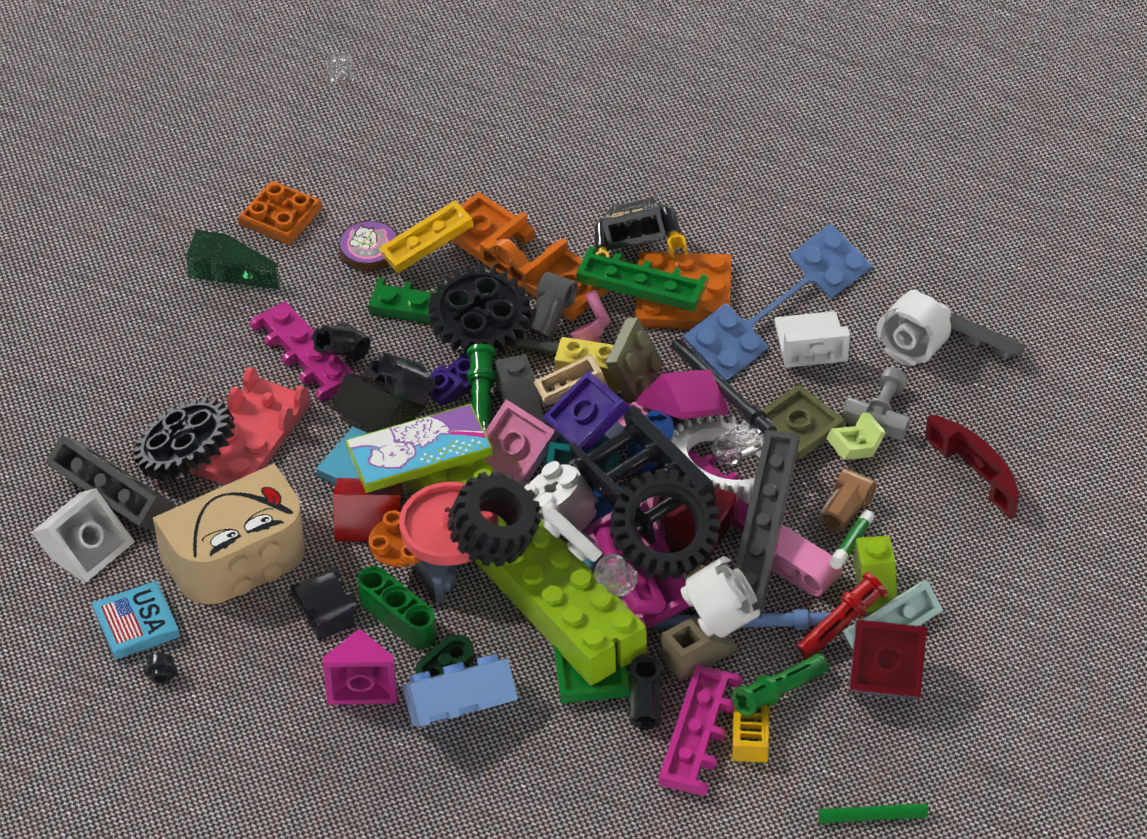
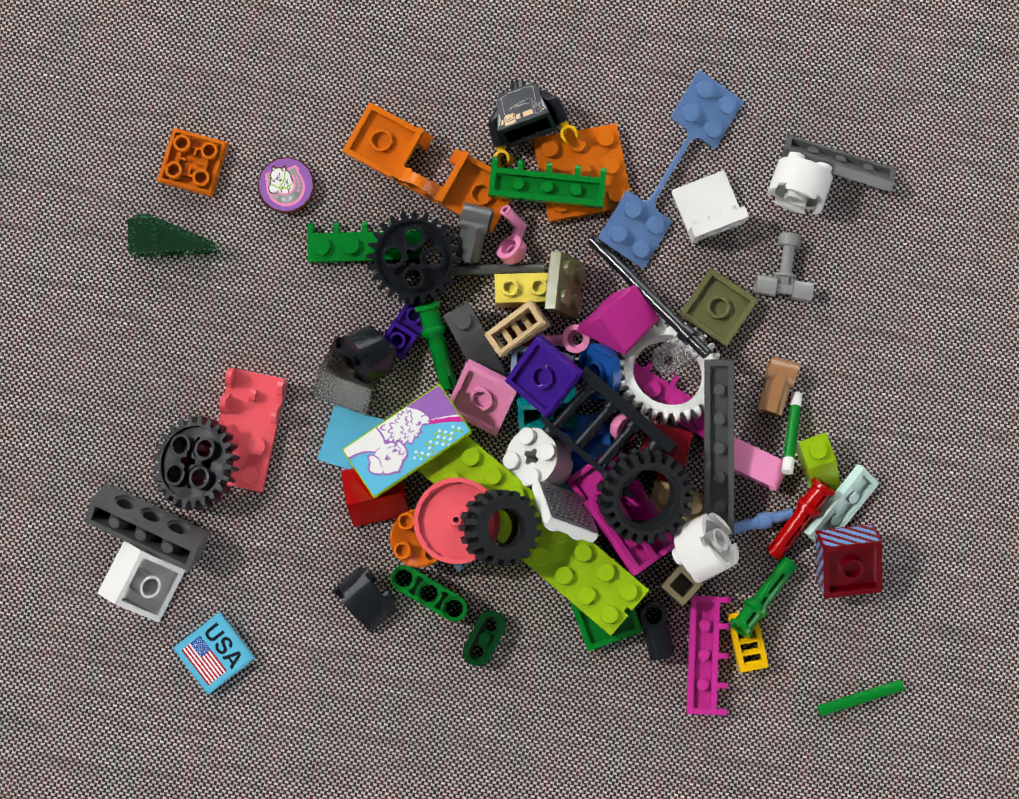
camera: 15 degrees left, 35 degrees up
(160, 668) = (252, 700): black plate -> none
(232, 537) = (274, 563): tan brick -> none
(295, 337) = (266, 322): dark pink hinge -> none
(341, 340) = (299, 314): black piece -> none
(359, 672) = (421, 675): dark pink slope -> none
(426, 236) = (339, 175): yellow plate -> none
(459, 690) = (506, 677): light blue wedge -> none
(615, 566) = (608, 555): clear wheel -> none
(858, 440) = (772, 317): yellowish green bracket -> none
(953, 438) = (908, 343): dark red slope -> none

